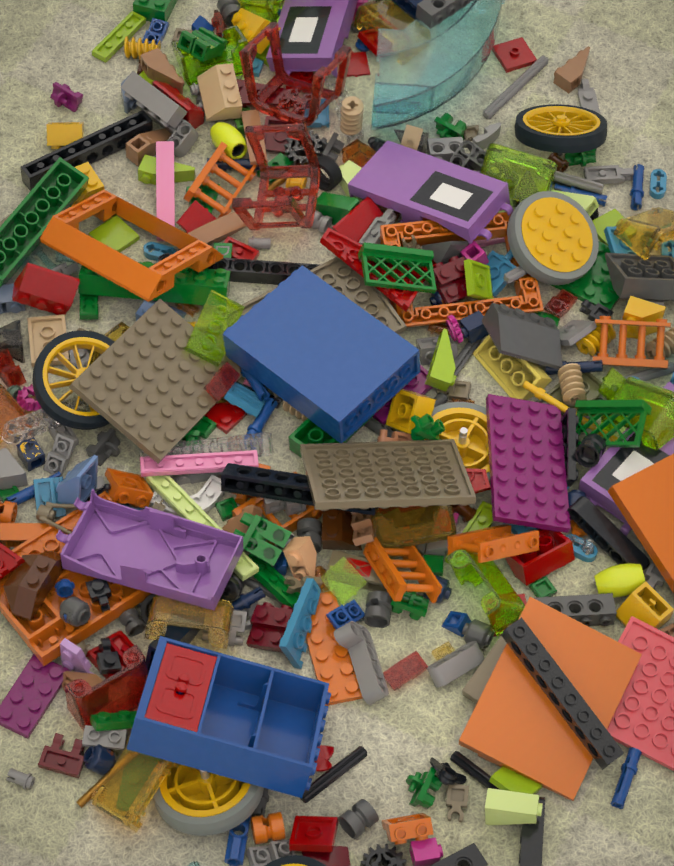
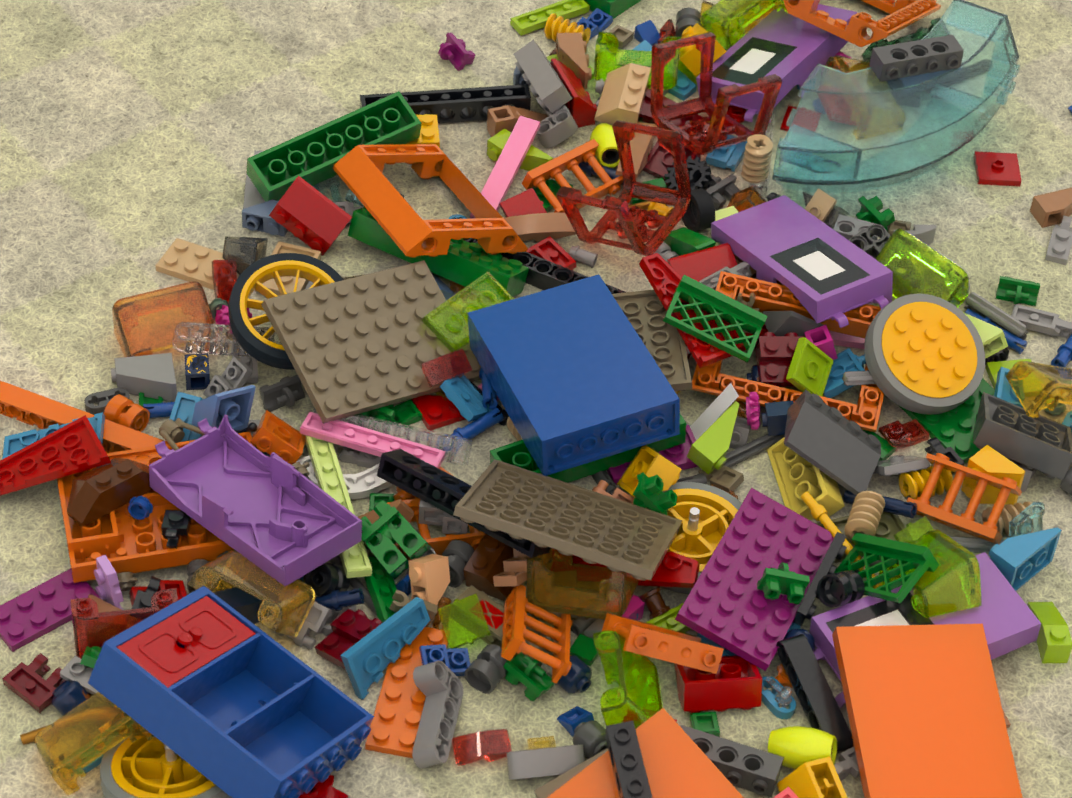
camera: 25 degrees right, 10 degrees down
(63, 133) = (427, 80): yellow slope -> none
(74, 611) = (133, 533): dark grey head -> none
(88, 307) = (353, 253): green plate -> none
(115, 234) = (426, 196): lime tile -> none
(203, 43) = (628, 41): green hips -> none
(224, 248) = (536, 246): green tile -> none
(430, 339) = (714, 411): none -> white sticker
(517, 85) = (979, 200): light grey axle -> none
(550, 460) = (783, 582): none -> green hips
(561, 128) = (1004, 252): wheel -> none
(562, 164) = (984, 288): reddish brown bush -> none

